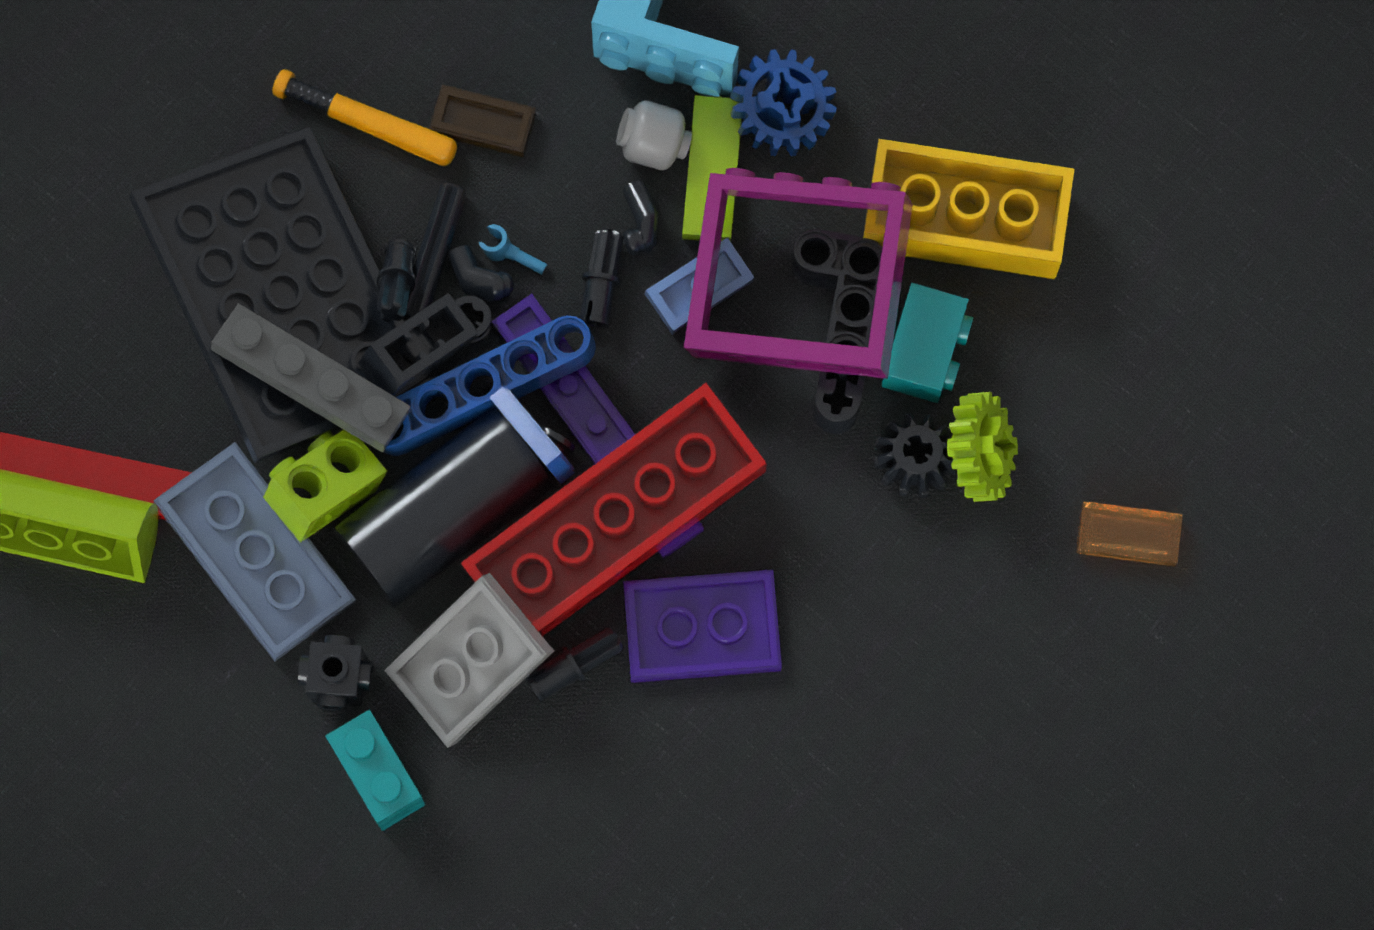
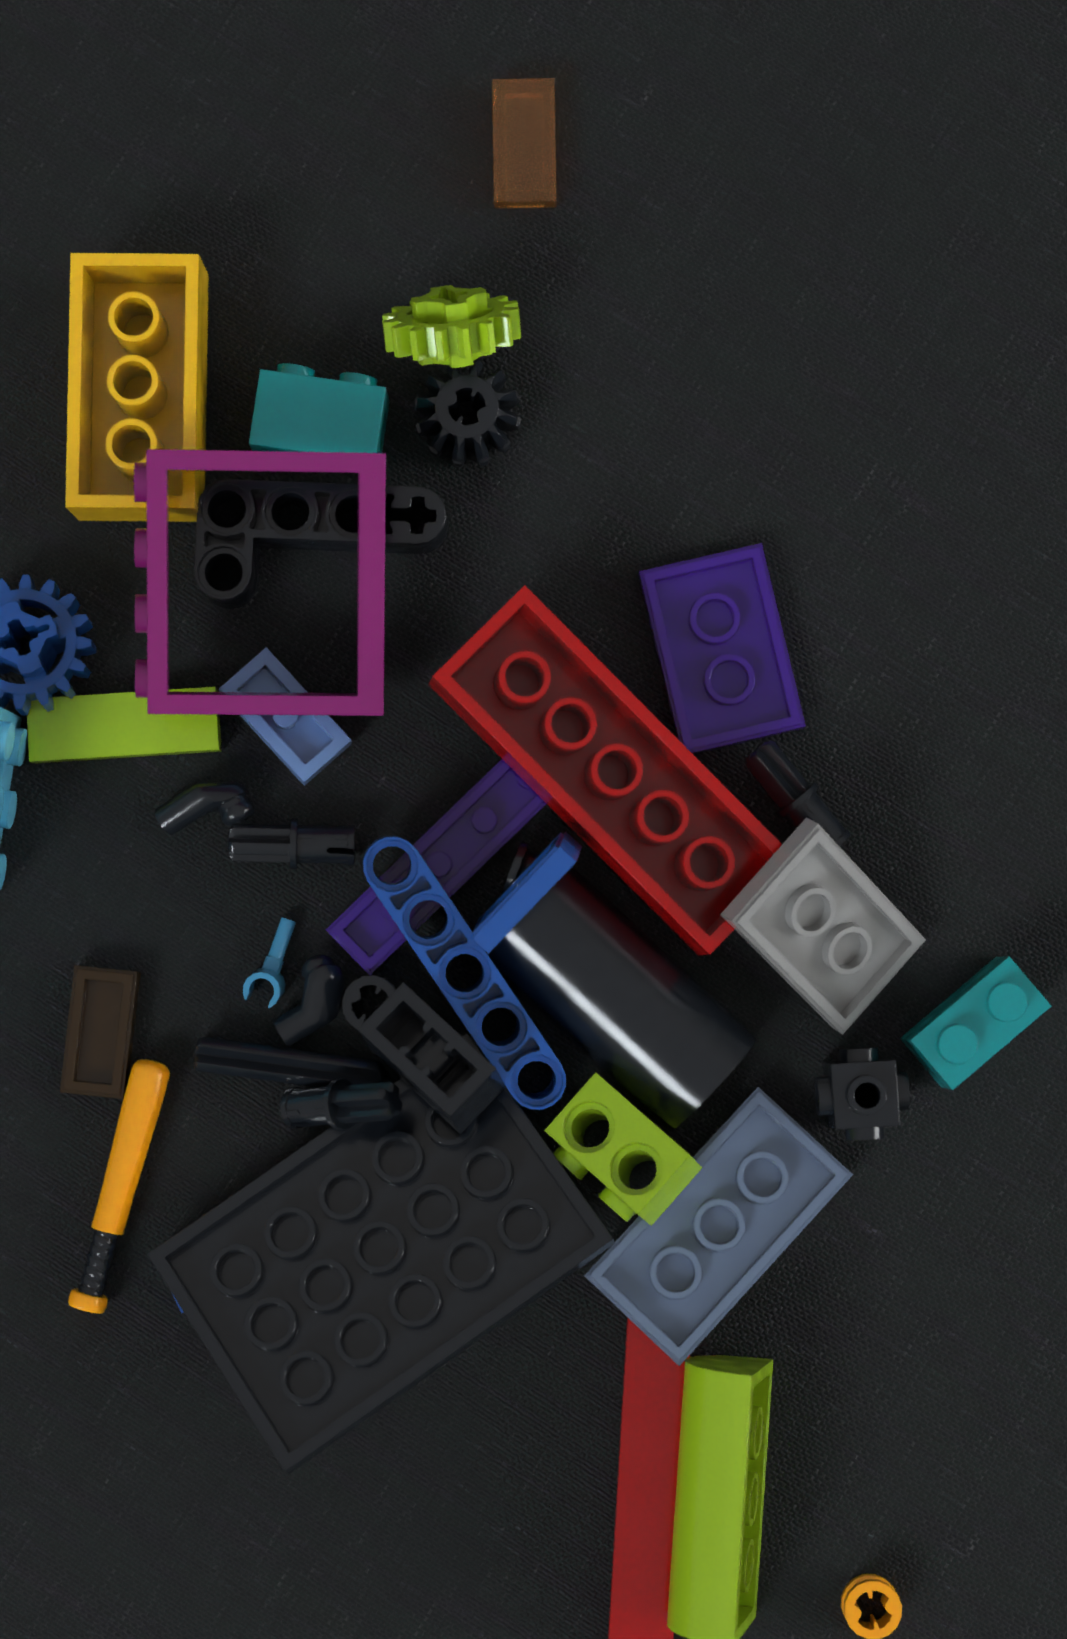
camera: 95 degrees left, 10 degrees up
(310, 377) = (497, 1190): dark grey plate -> none
(653, 135) = (92, 805): light grey head -> none

